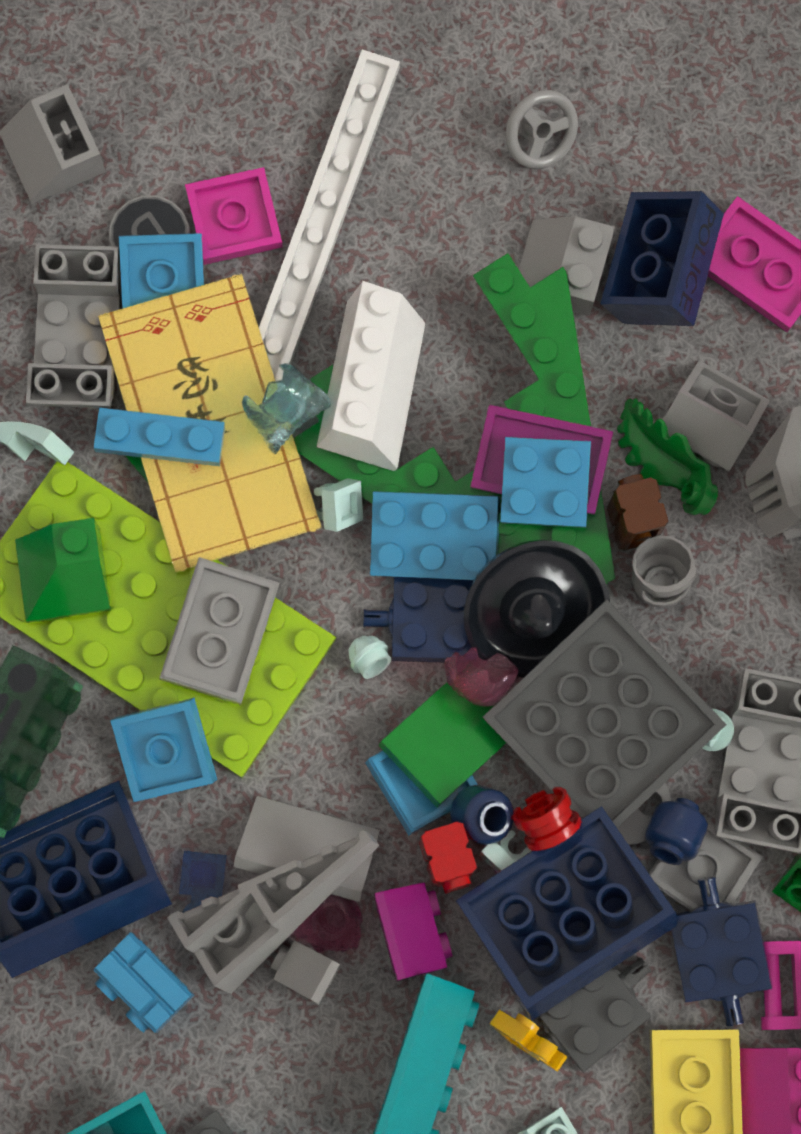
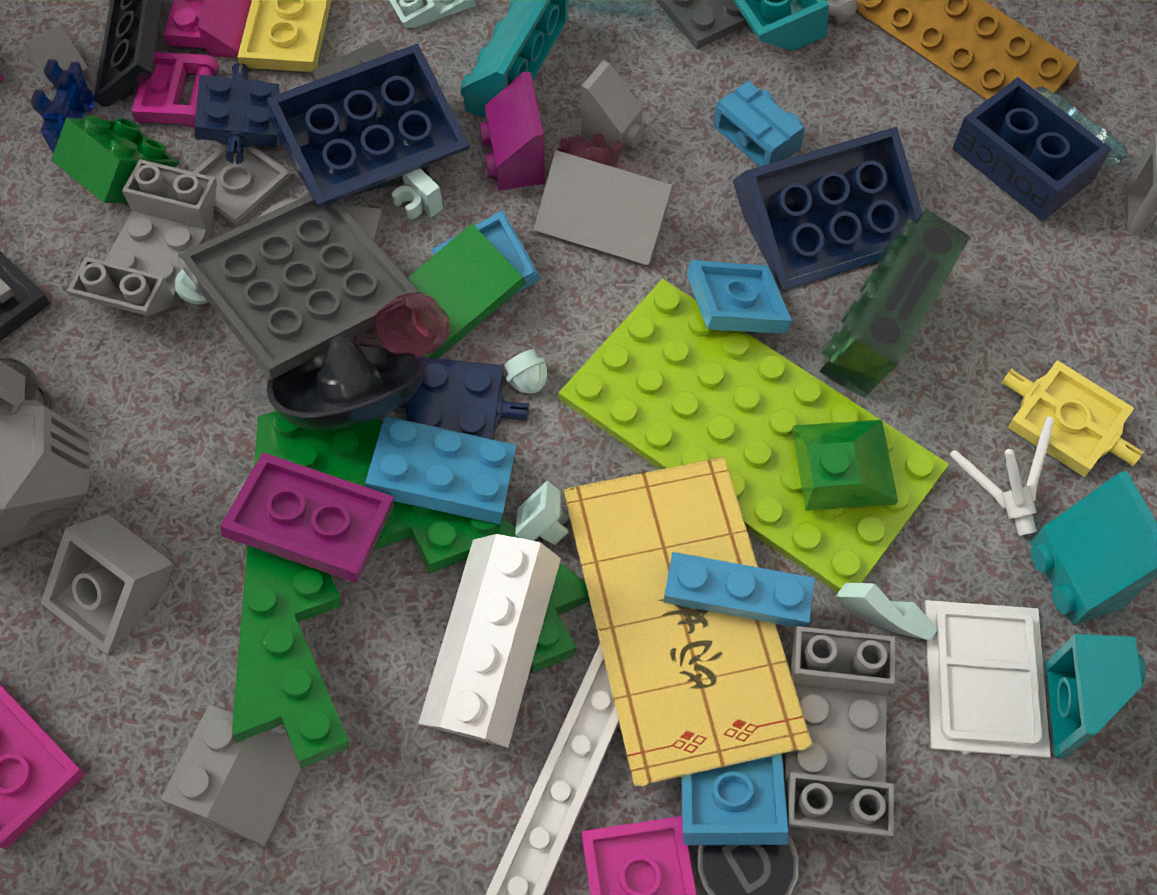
camera: 170 degrees left, 15 degrees down
(202, 876) = (703, 203): clear blue plate -> none
(219, 631) = (678, 394): light grey tile -> none
(247, 925) = (662, 144): light grey wedge -> none
(285, 407) = (591, 598): clear light blue hair -> none
(448, 857) = (471, 181): red brick -> none
(484, 813) = (433, 212): dark blue head -> none
(522, 1034) = (408, 34): yellow plate -> none
(545, 482) = (307, 483): dark azure plate -> none
(547, 819) = (372, 196): red wheel -> none
(636, 511) = (215, 464): reddish brown brick -> none
(662, 258) = (112, 756): dark blue brick -> none
(664, 556) = (194, 408): light grey helmet -> none
(666, 458) = (180, 541): green plant -> none
(676, 831) = (252, 190): dark blue head -> none

